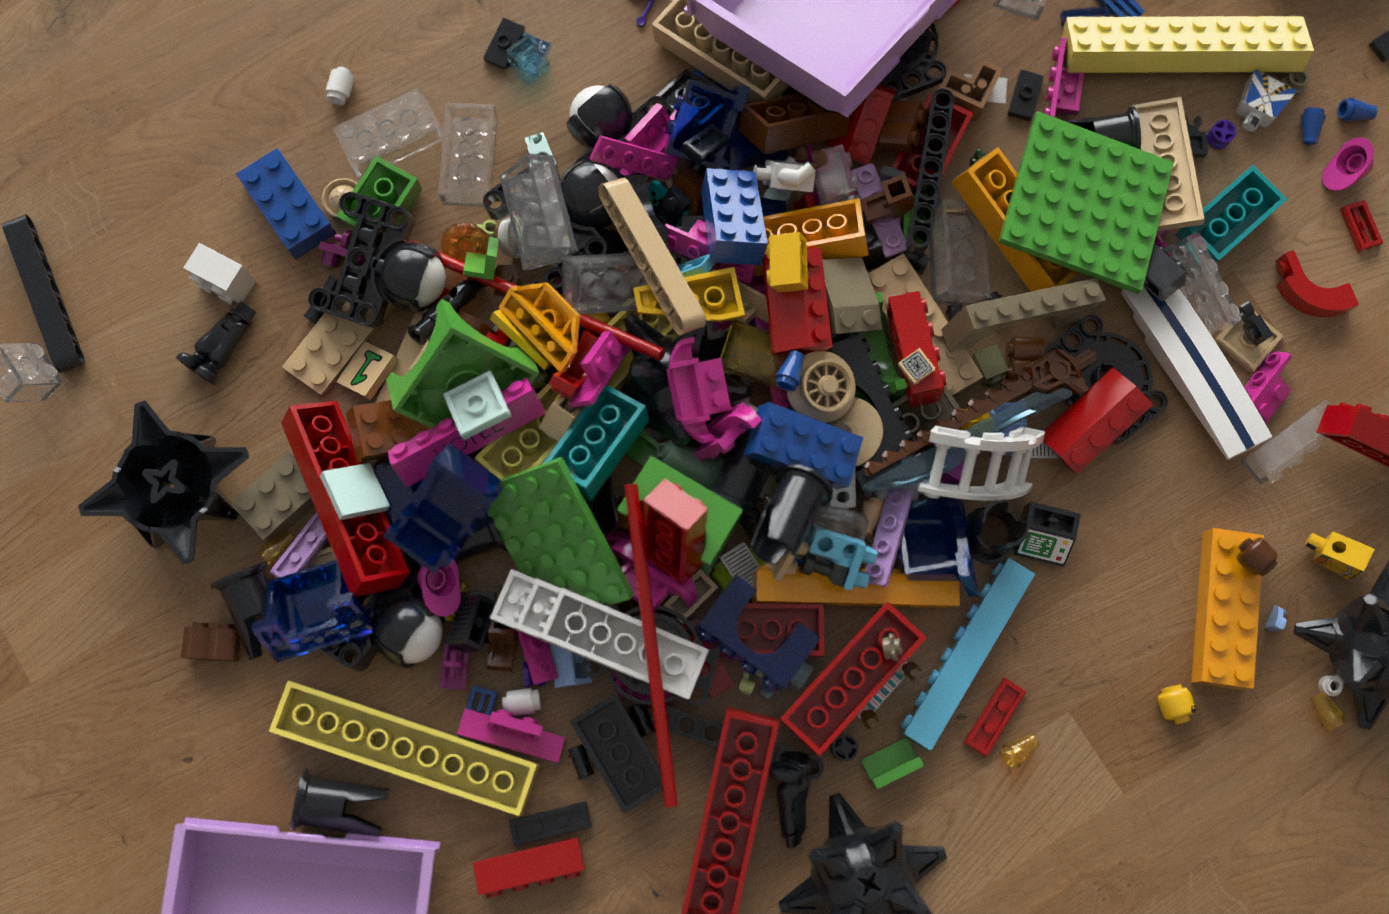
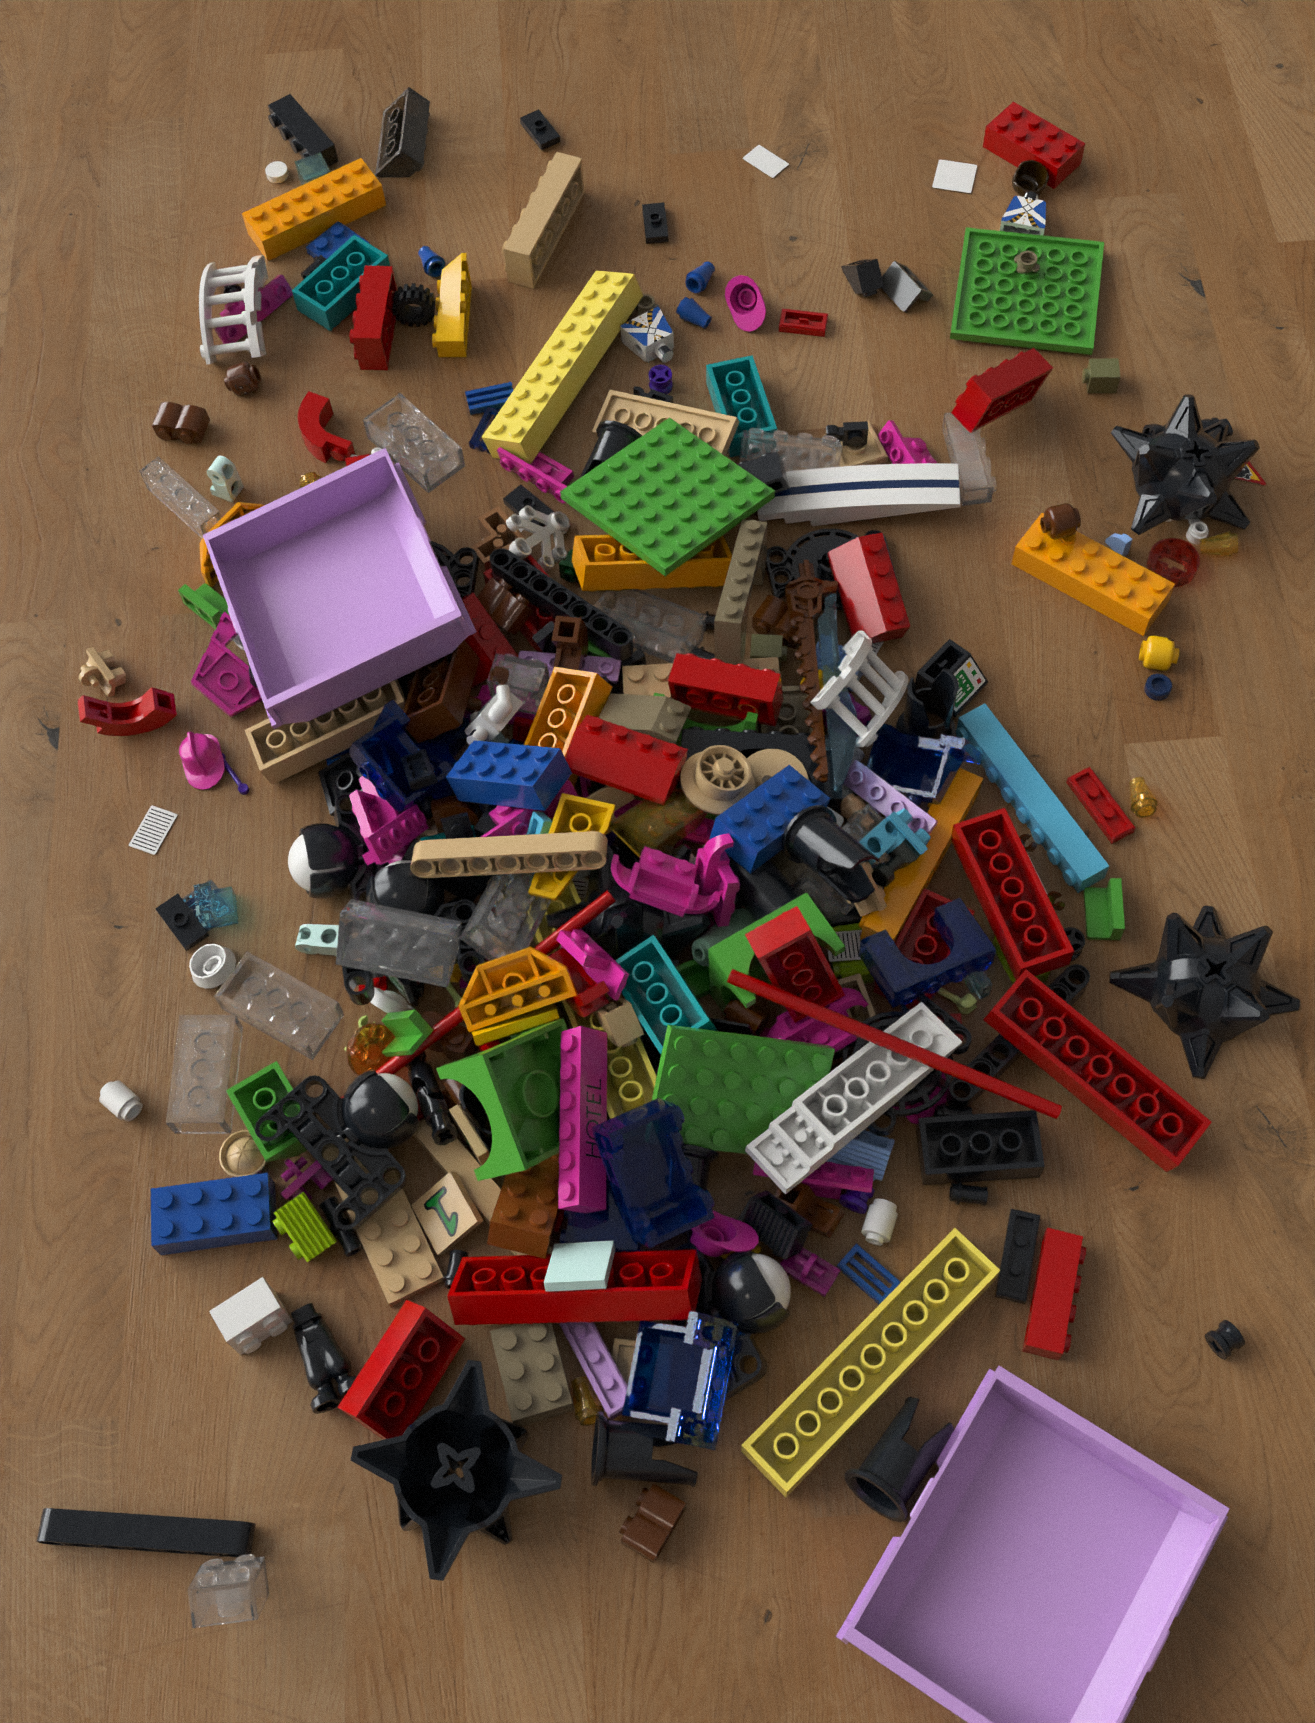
camera: 55 degrees left, 15 degrees down
(227, 404) = (402, 1371): none -> red brick
(305, 272) = (304, 1227): none -> lime brick
(338, 396) = (454, 1262): none -> black pin
(477, 405) = (566, 1085): light aqua tile -> none
(479, 86) = (211, 965): none -> white hat
(511, 733) = (907, 1245): dark pink bracket -> none
(787, 262) = (587, 741): yellow brick -> none
(790, 372) = (692, 795): blue cone -> none
(792, 794) = (1077, 988): black piece -> none
(892, 647) = (1001, 836): dark tan plate -> none
(916, 366) = (749, 685): tile -> none
(996, 119) = (556, 524): none -> white plant
(1143, 718) = (1158, 687): none -> dark blue tile
(1296, 676) = (1179, 552): none -> clear red piece
(1309, 297) = (840, 388): red arch -> none
(1340, 554) = (1087, 467): yellow torso -> none

